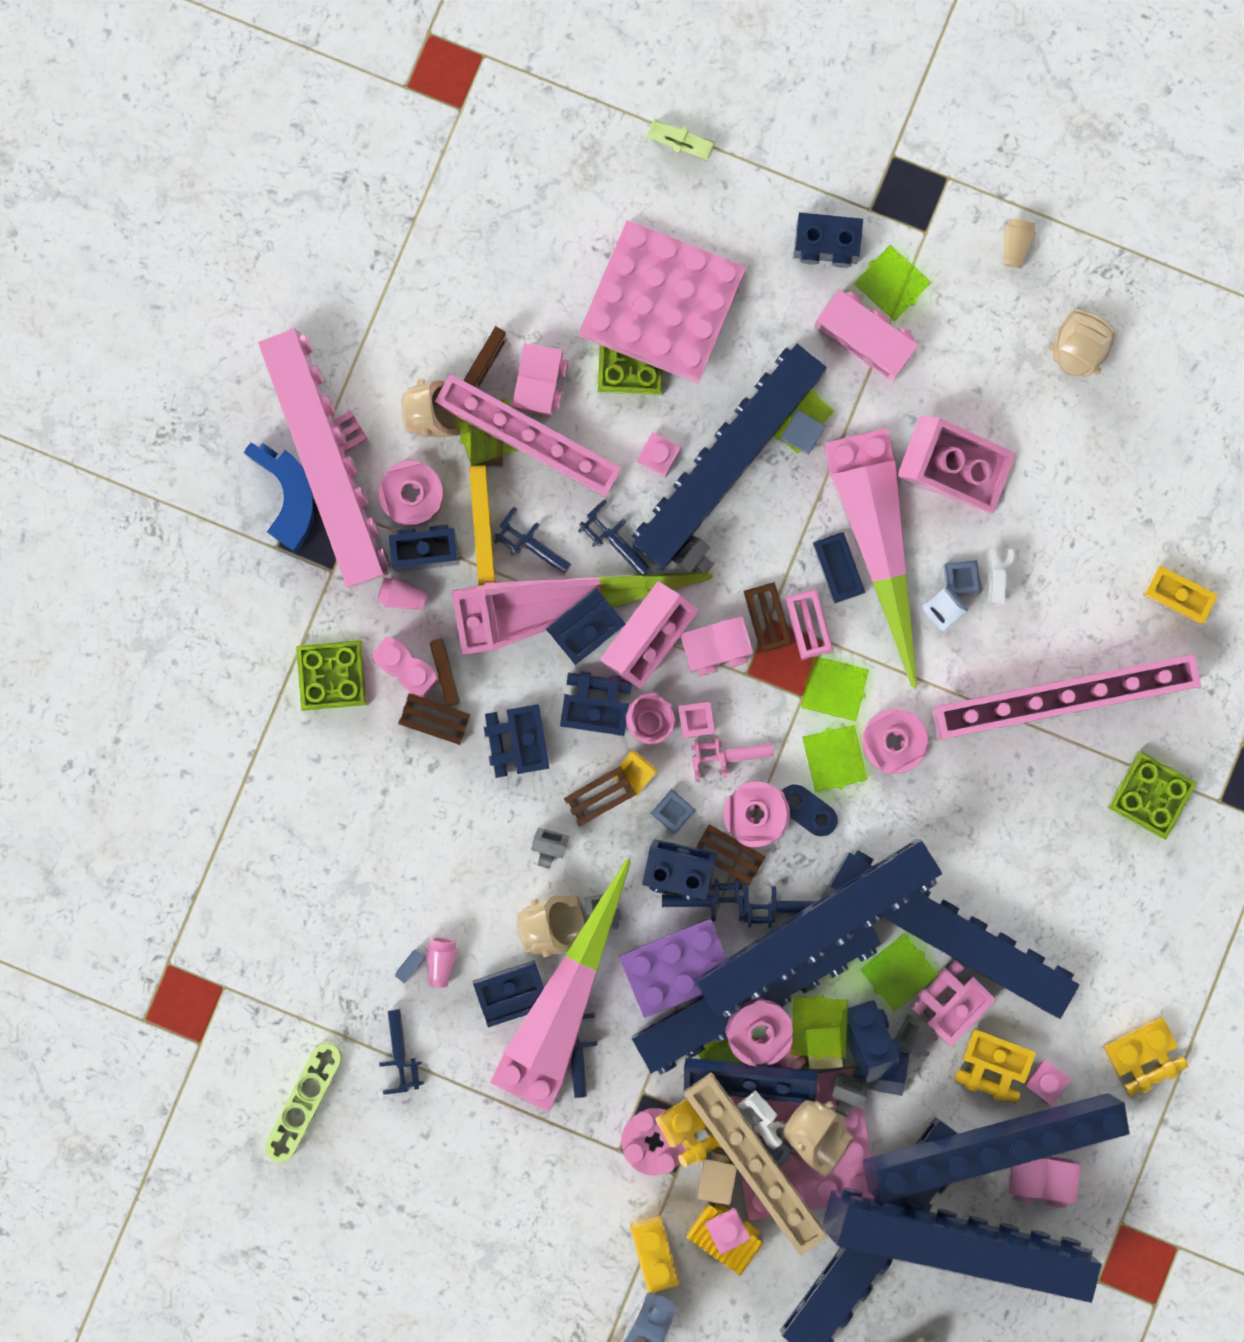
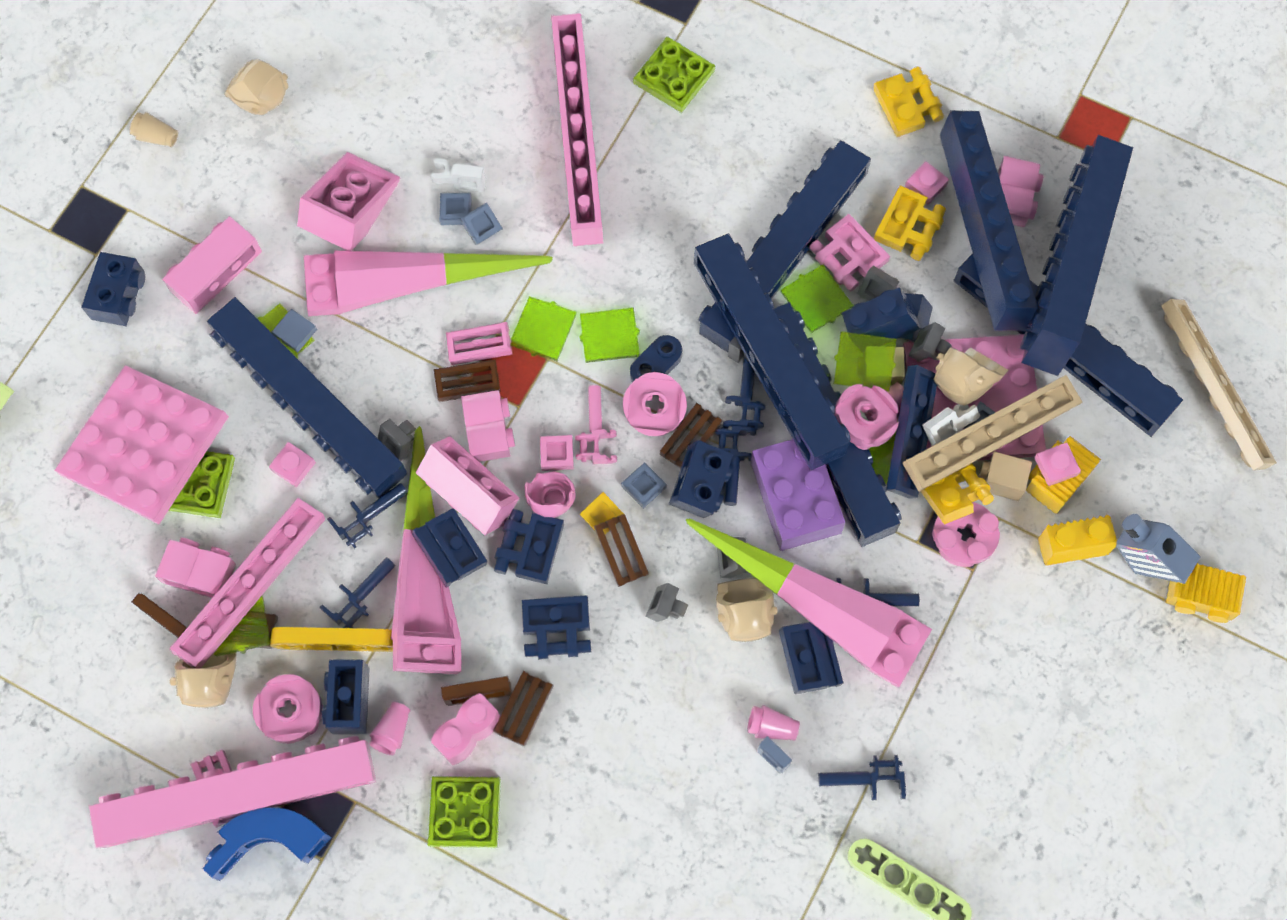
camera: 85 degrees left, 15 degrees down
(838, 567) = (428, 313): dark blue tile -> none
(892, 283) = (167, 241): clear neon green piece -> none
(912, 747) = (596, 295): bright pink plate -> none
(1180, 595) = (497, 32): yellow plate -> none

